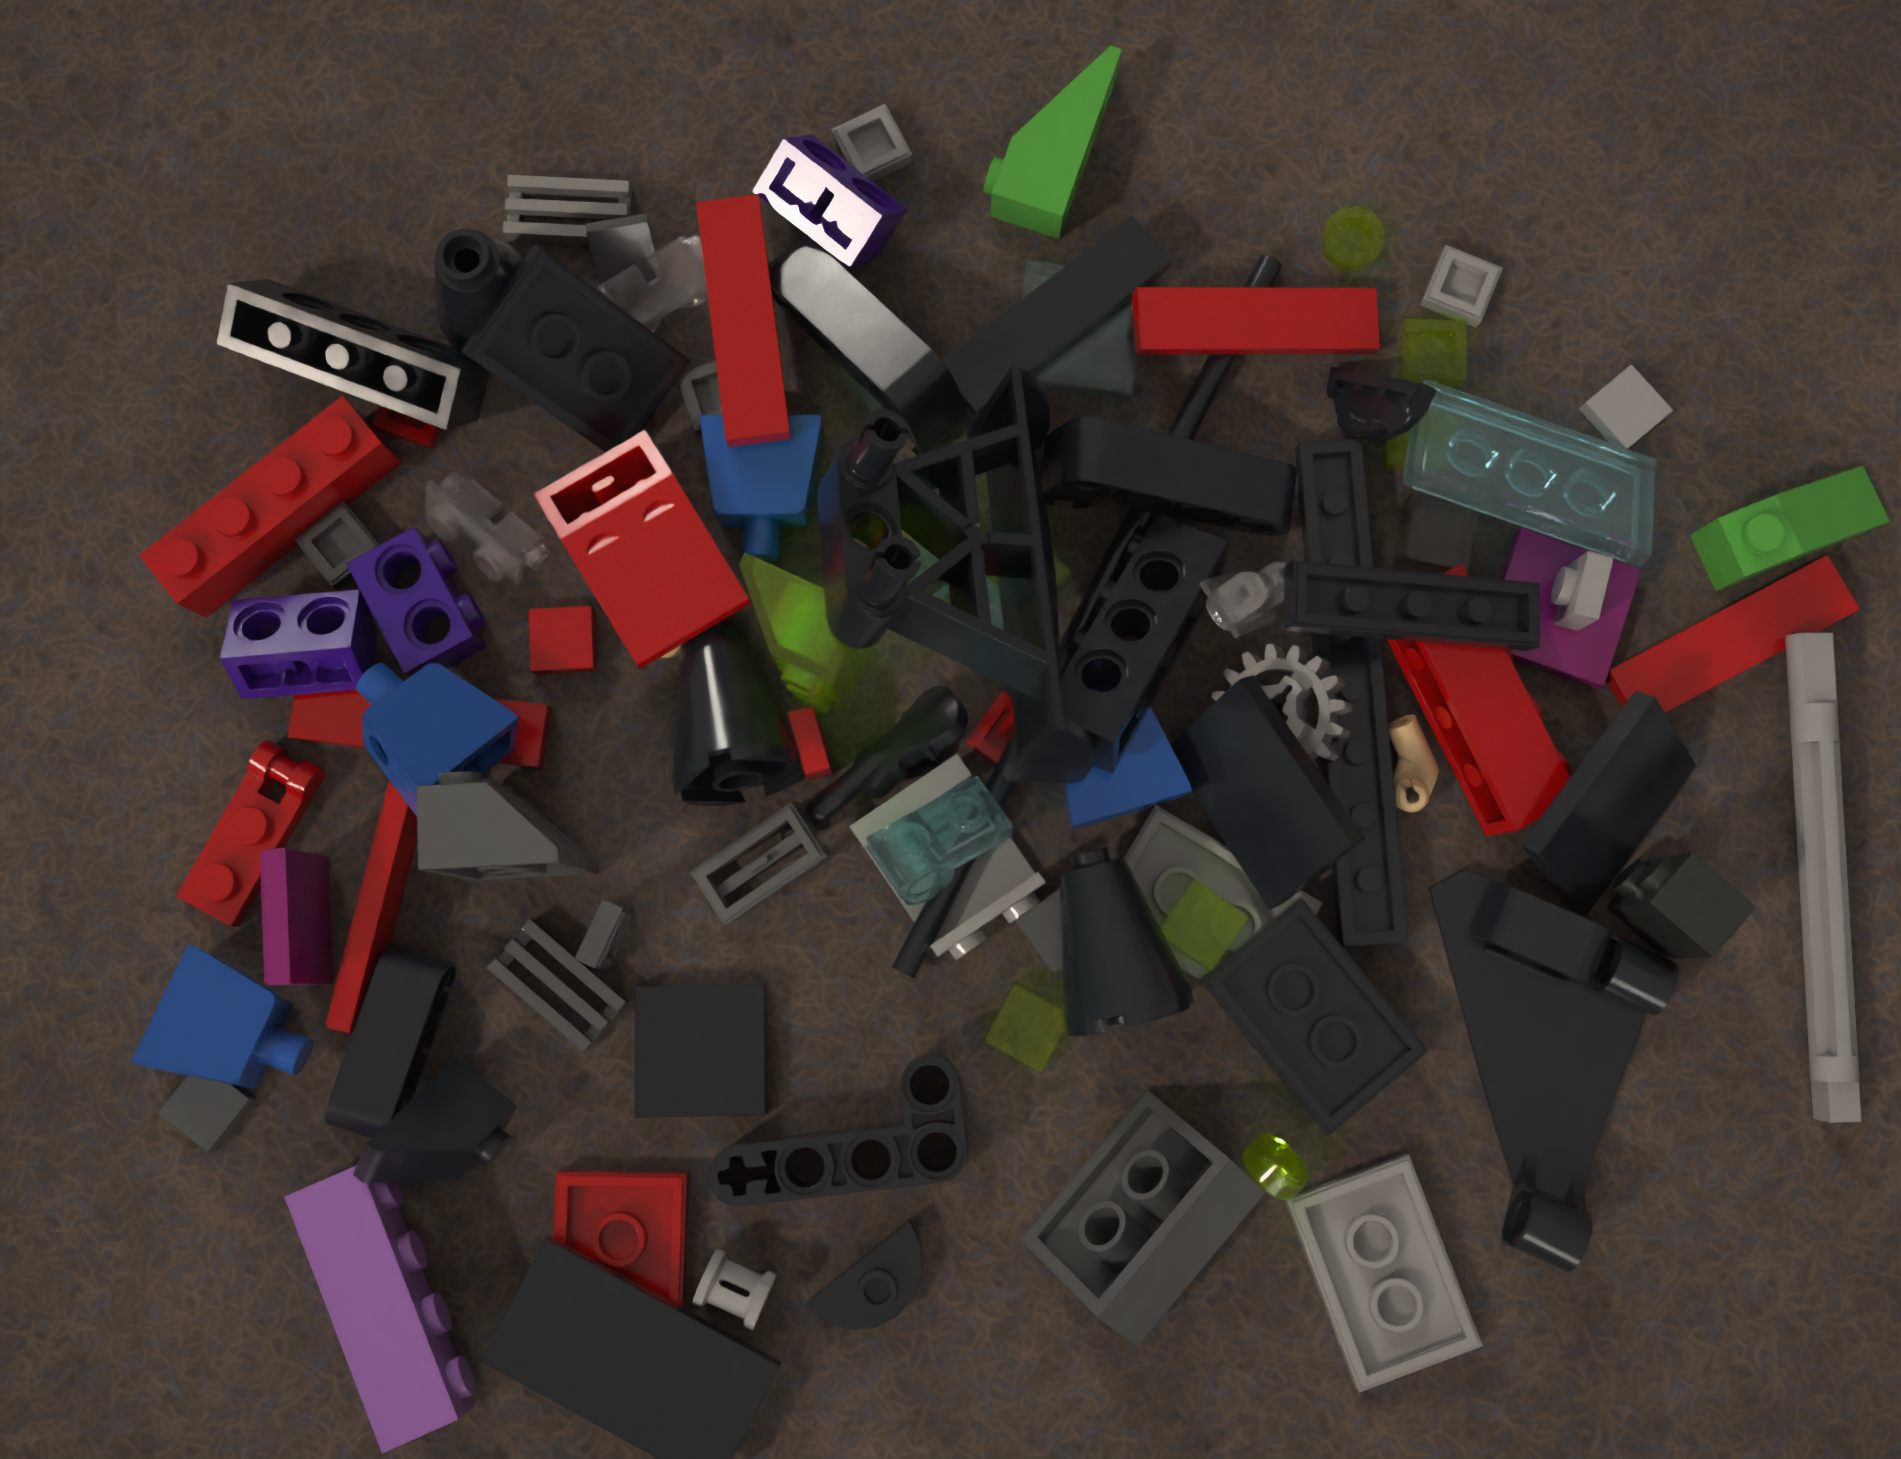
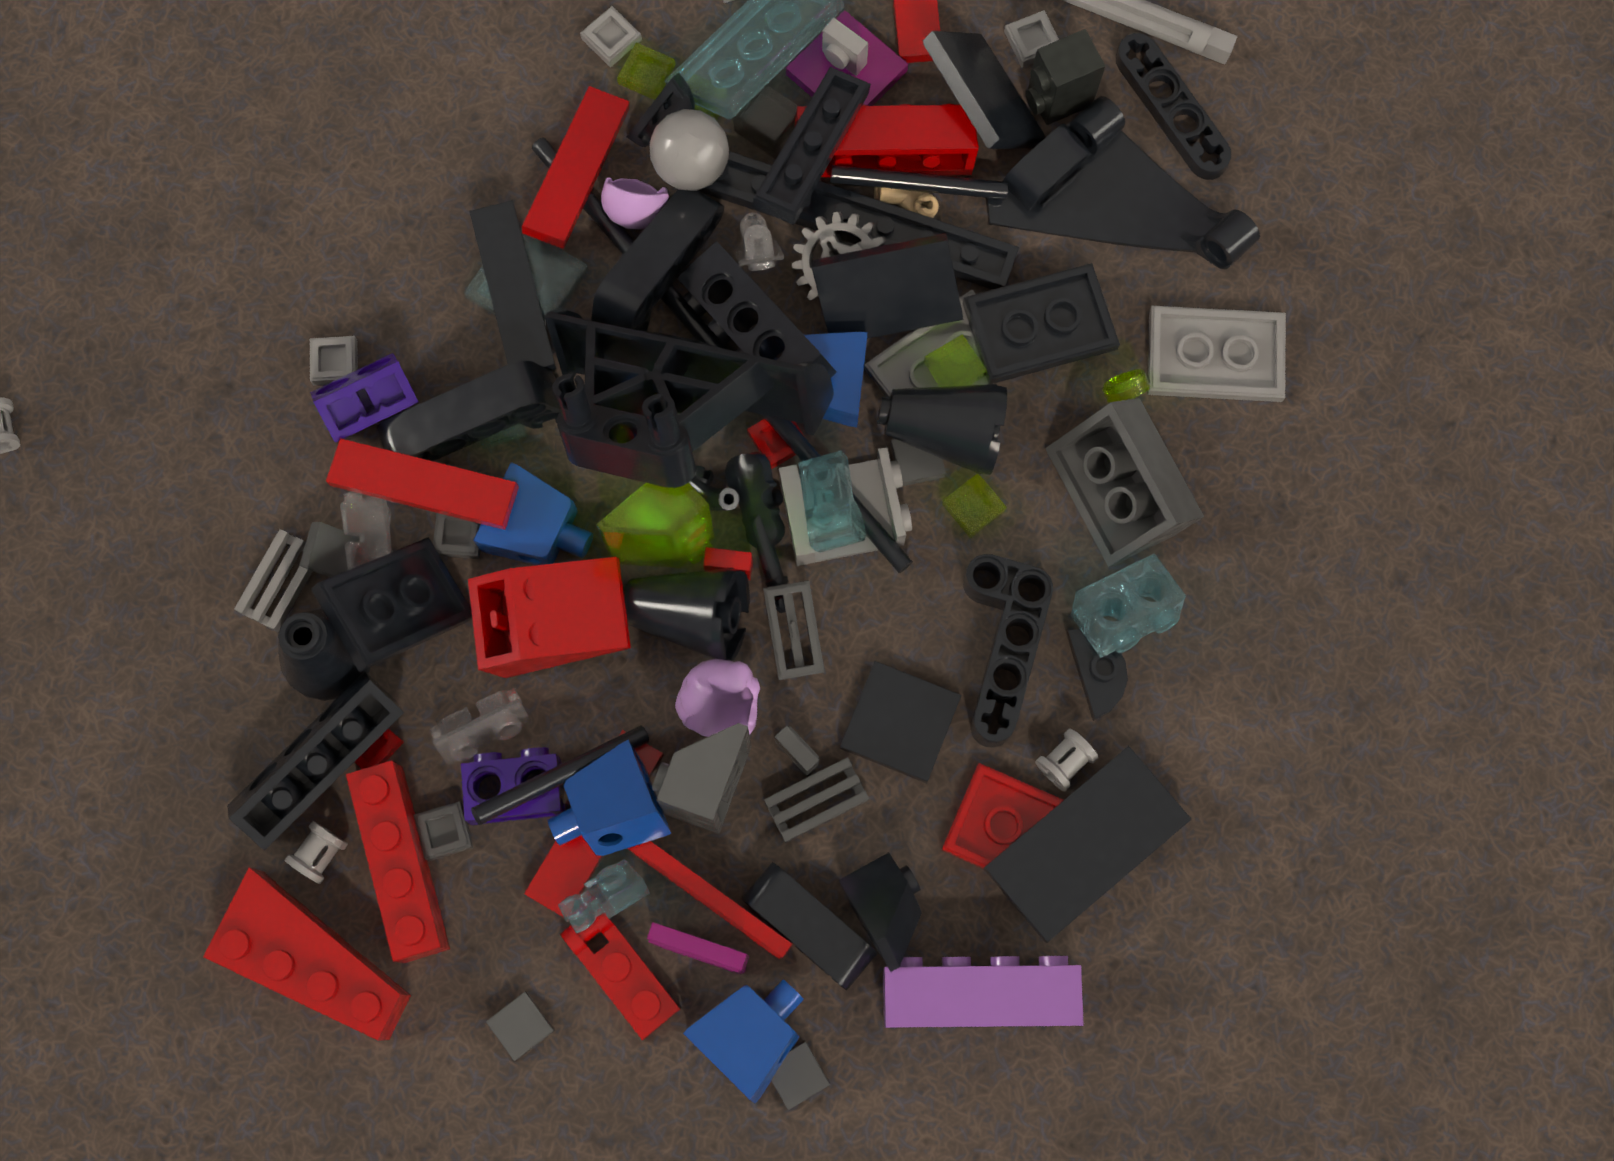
camera: 70 degrees left, 5 degrees down
(114, 454) = (300, 957): none -> red wedge
(141, 742) = (520, 1026): none -> dark grey tile
(251, 407) = (316, 852): none -> light grey bush
(298, 643) = (505, 878): dark purple brick -> none
(330, 779) = (607, 893): none -> clear light blue plate
(439, 649) = (552, 778): none -> black bar
(562, 640) = (581, 703): red tile -> none
(625, 808) = (718, 696): none -> lavender hair
(891, 685) = (718, 498): none -> black arm
(975, 1278) = (1122, 598): none -> clear light blue brick
(1050, 152) = (407, 253): bright green slope -> none
(1240, 411) = (632, 202): none -> lavender hair
(1335, 450) = (689, 150): none -> light grey piece
(1352, 238) = (547, 87): clear neon green tile -> none
(1437, 771) = (918, 182): none -> black bar
(1723, 837) = (1029, 35): none -> light grey tile
(1724, 1078) = (1179, 103): none -> black beam

